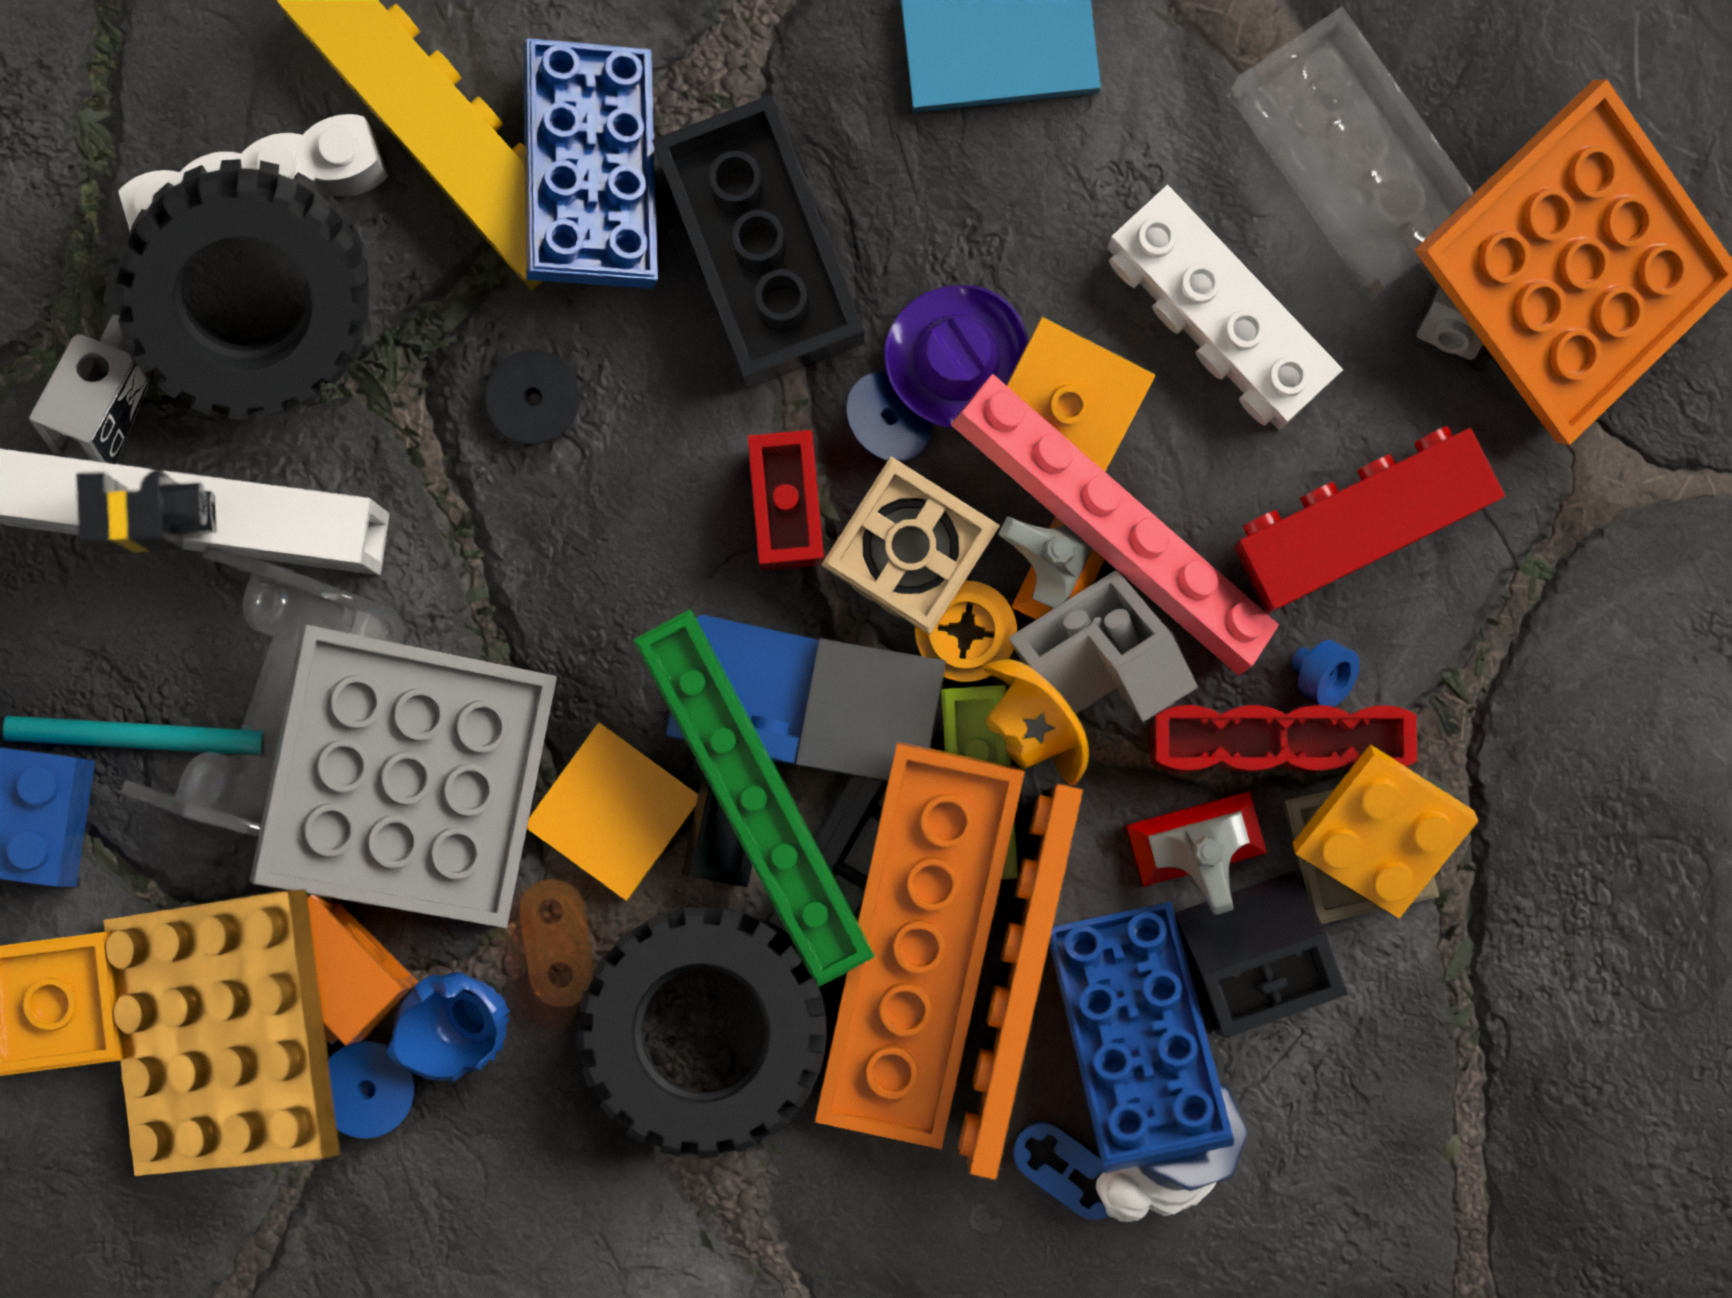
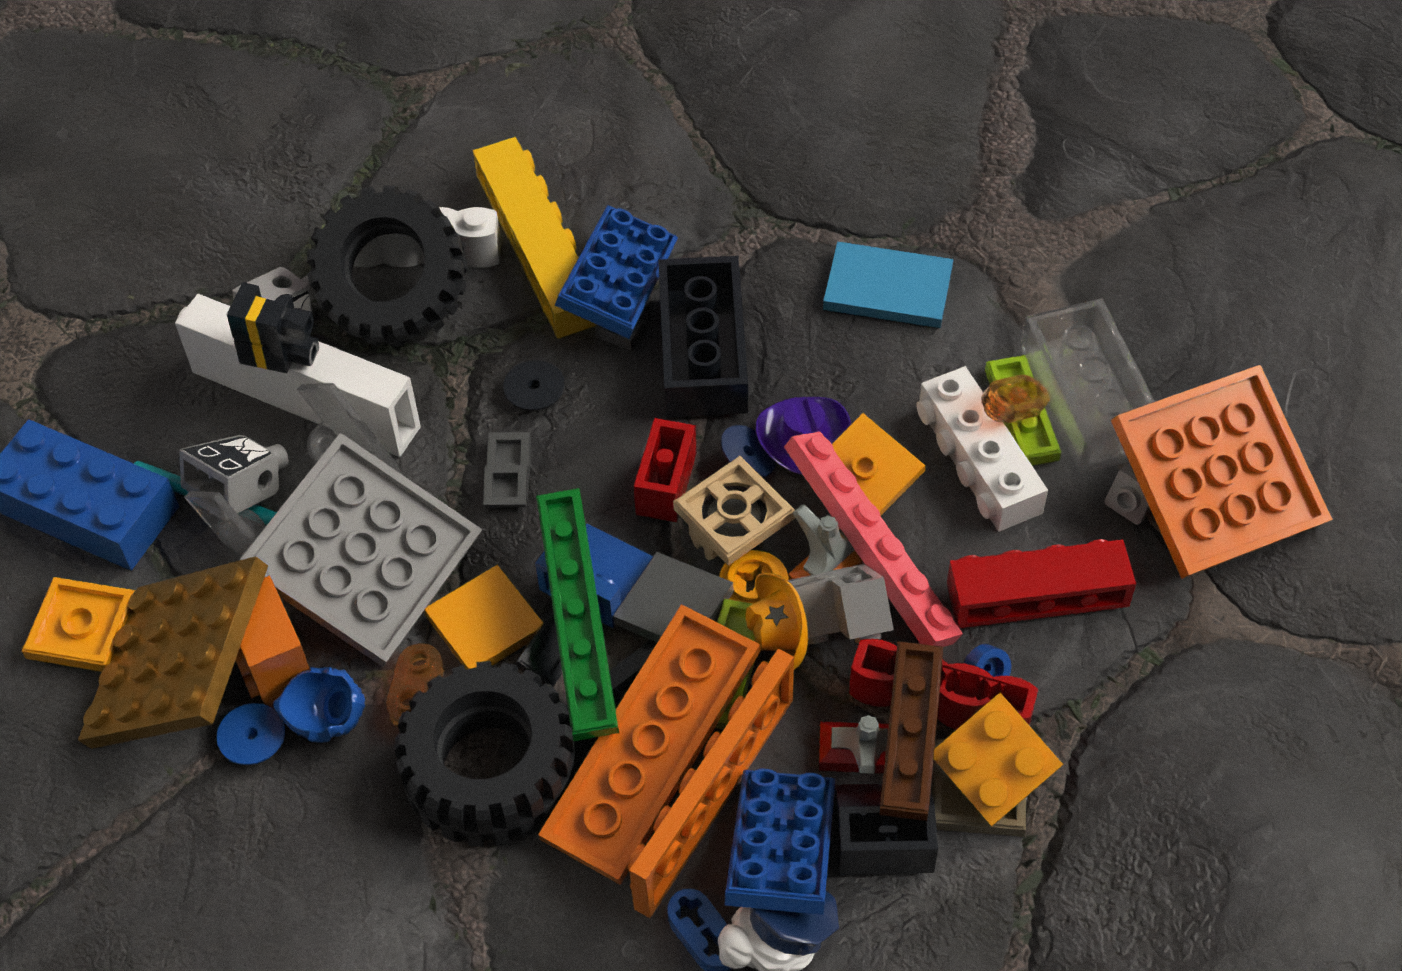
camera: 20 degrees right, 30 degrees down
(162, 706) = (235, 468): none -> light grey torso
(550, 557) = (507, 470): none -> dark grey slope
(1257, 226) = (1014, 398): none -> clear orange plate
(1260, 211) = (1032, 434): none -> lime tile
(1267, 836) = (911, 731): none -> reddish brown tile

